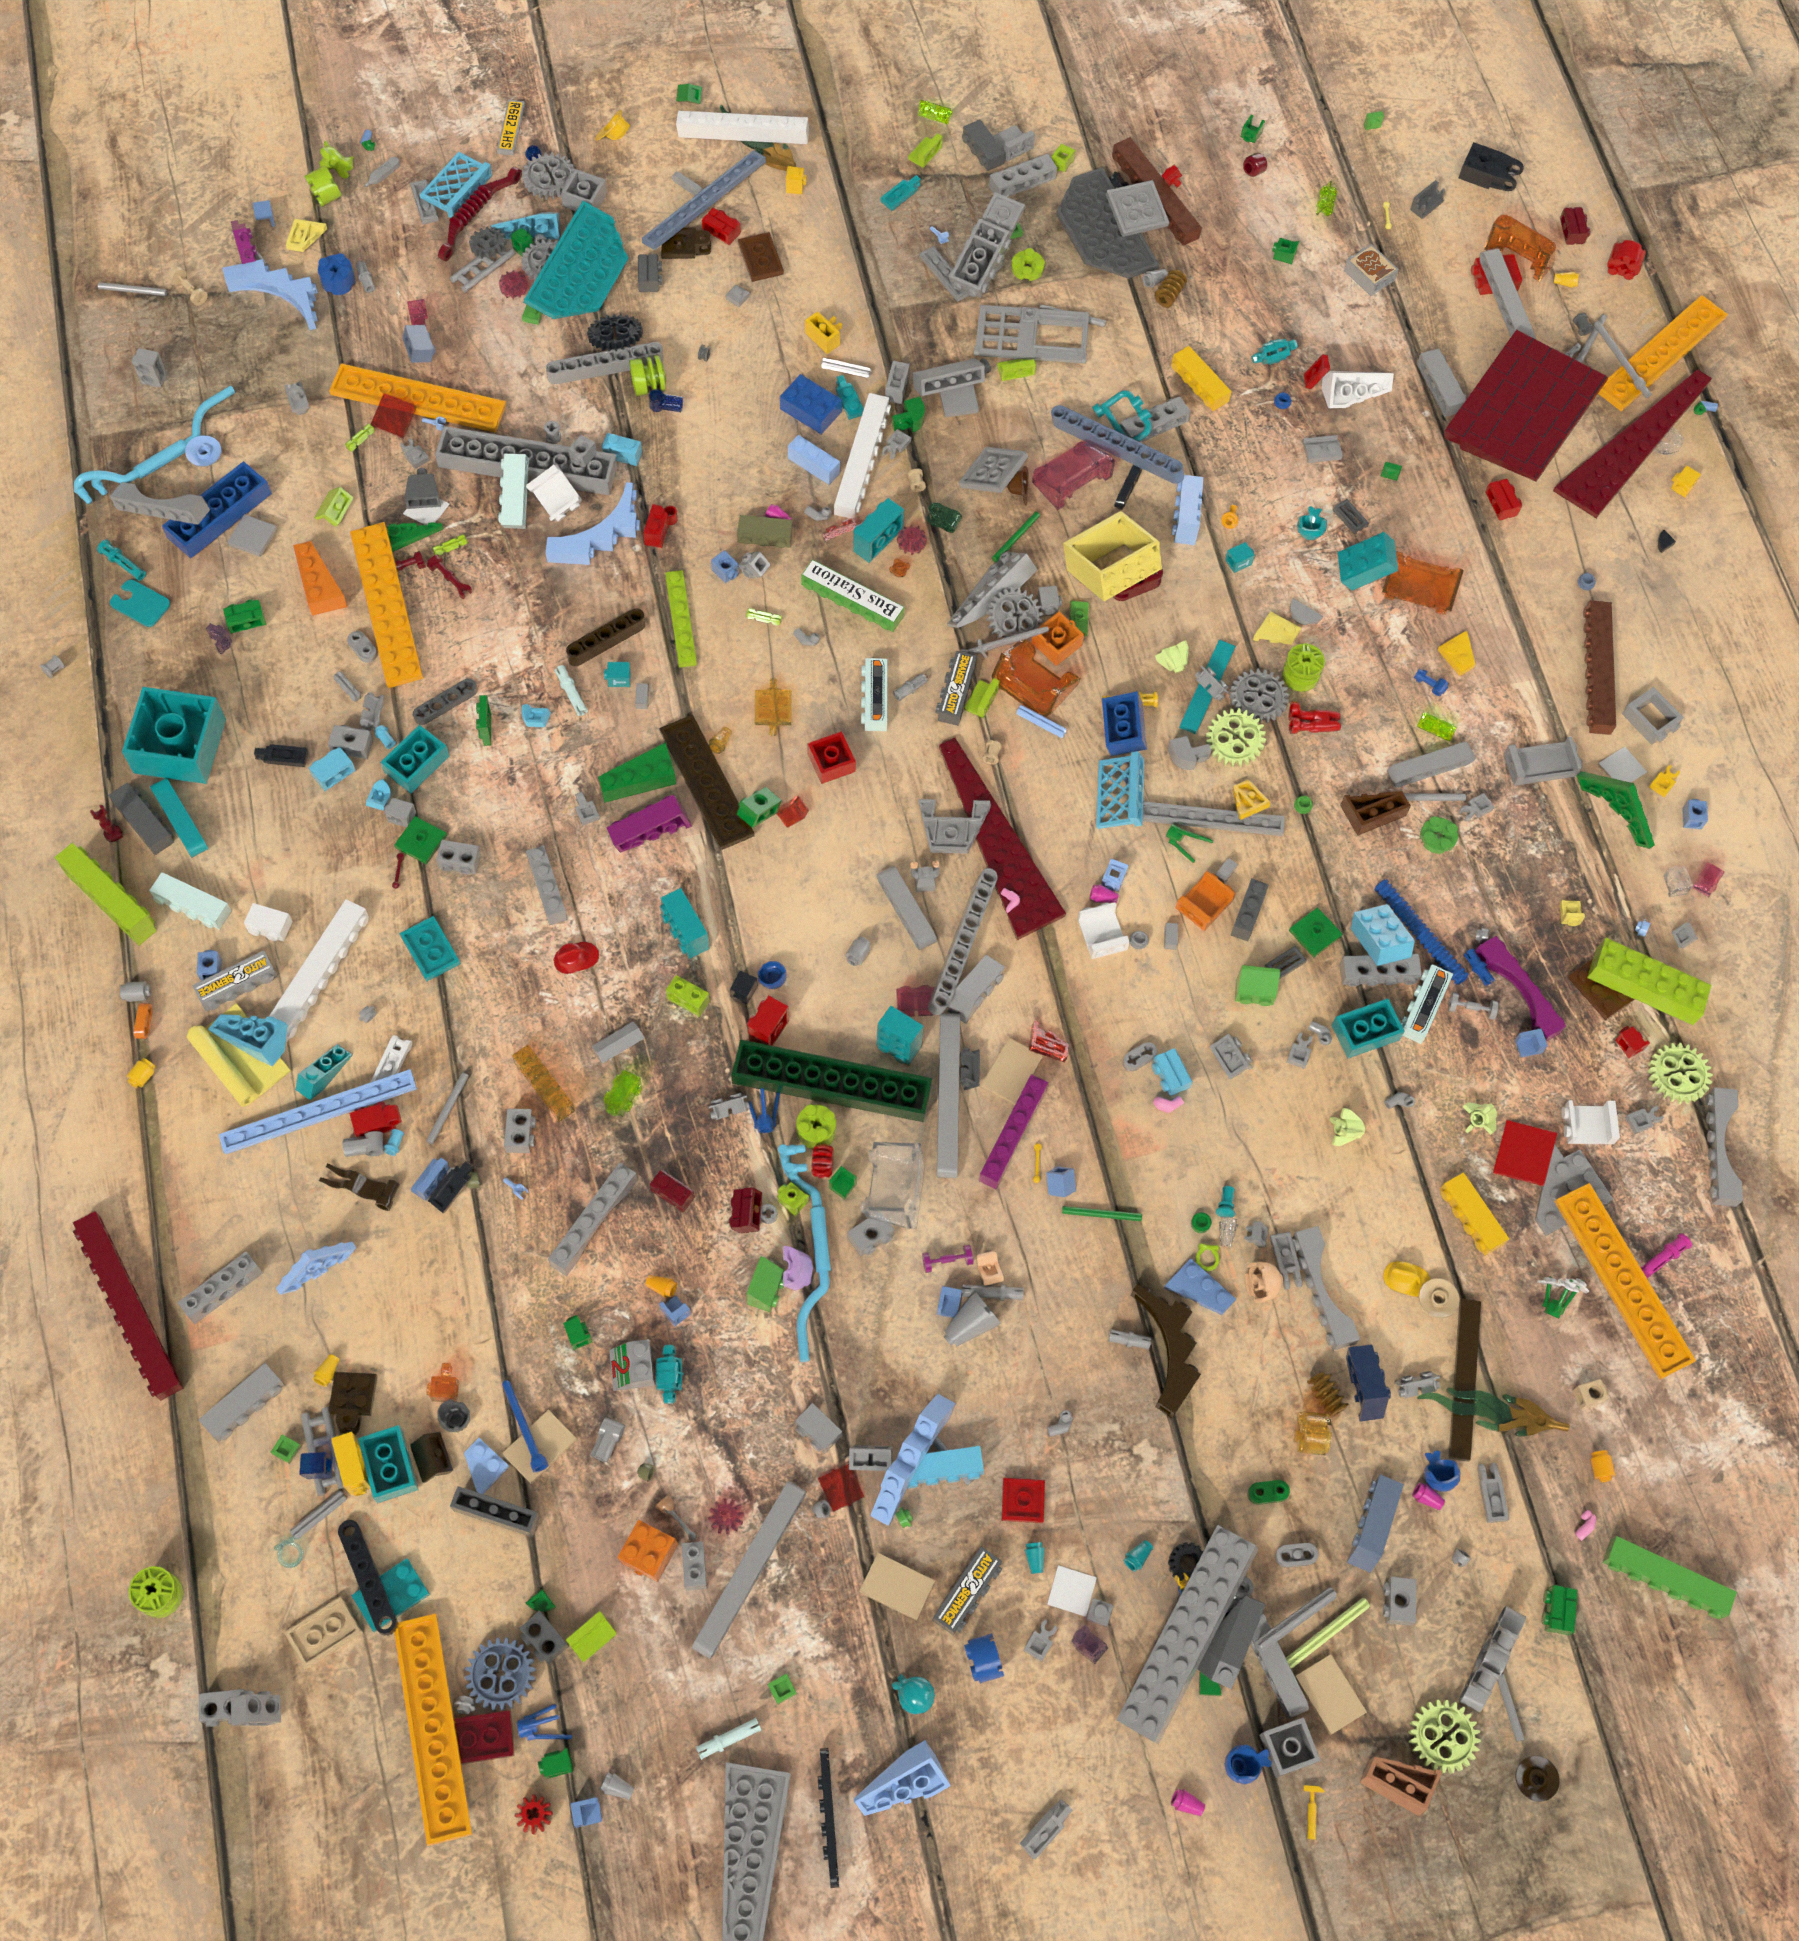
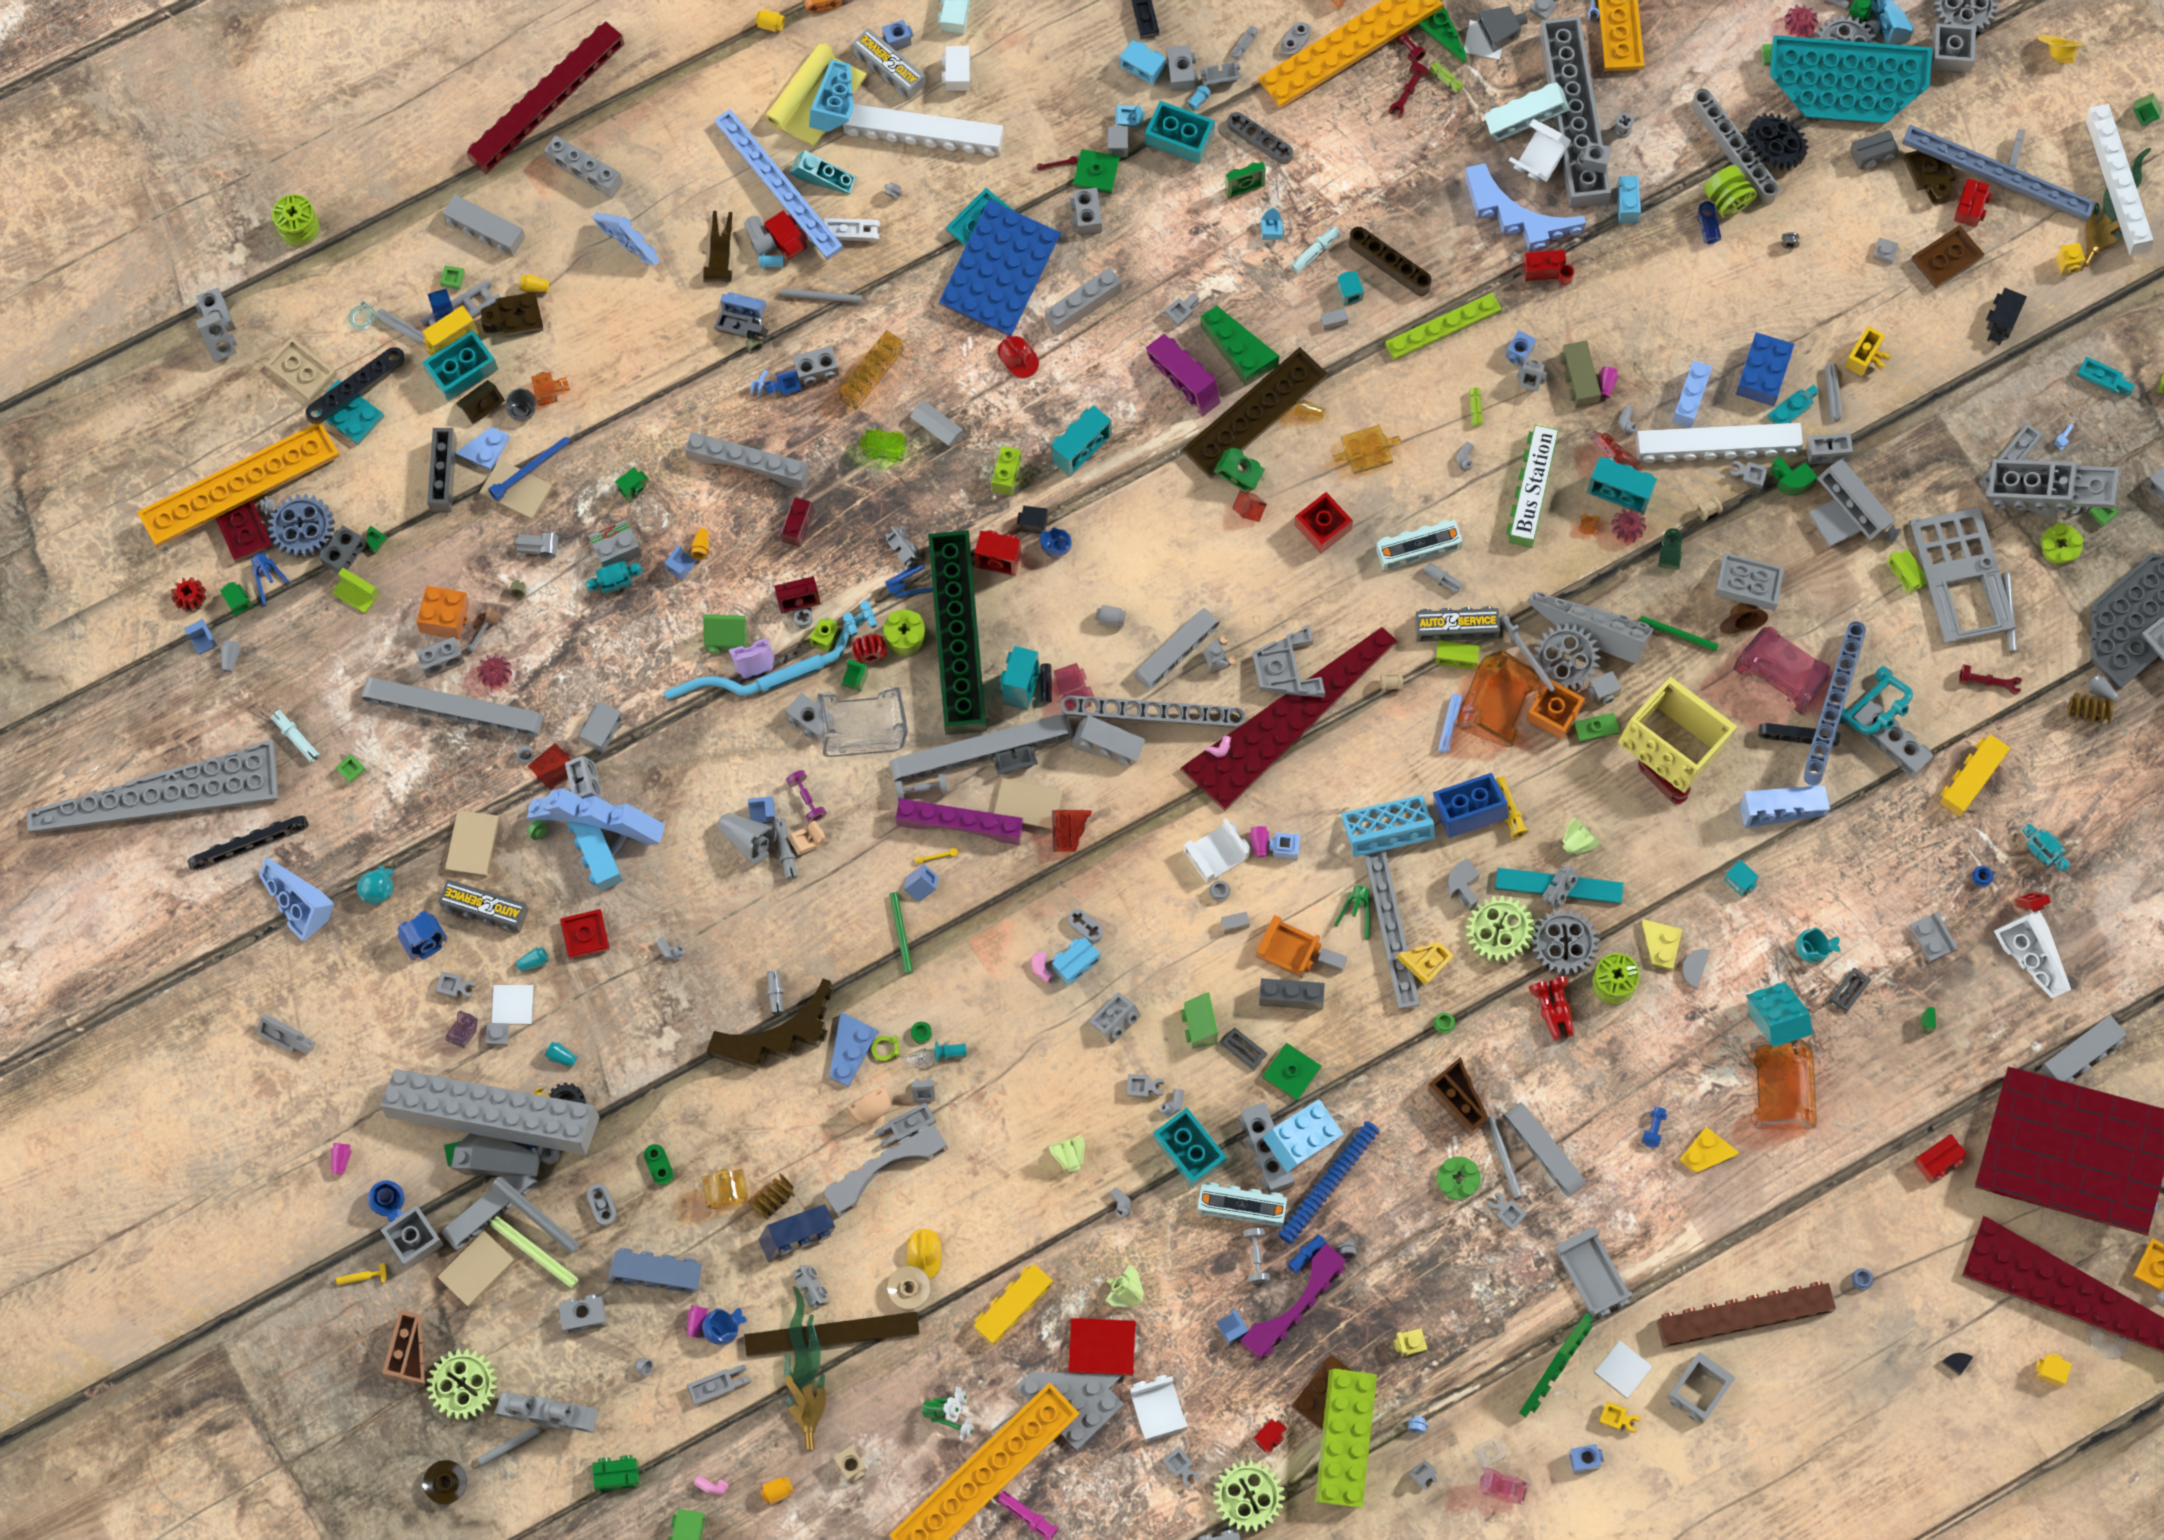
camera: 80 degrees right, 5 degrees up
(485, 945) = (999, 268): none -> blue plate
(526, 1162) = (786, 382): none -> blue plate
(825, 236) = (2005, 314): none -> black brick
(968, 1174) = (922, 787): none -> light grey wheel
(1116, 358) = (1988, 680): none -> dark red piece
(1230, 519) = (1790, 857): light orange plate -> none
(1436, 726) = (1598, 1146): clear neon green hinge -> none

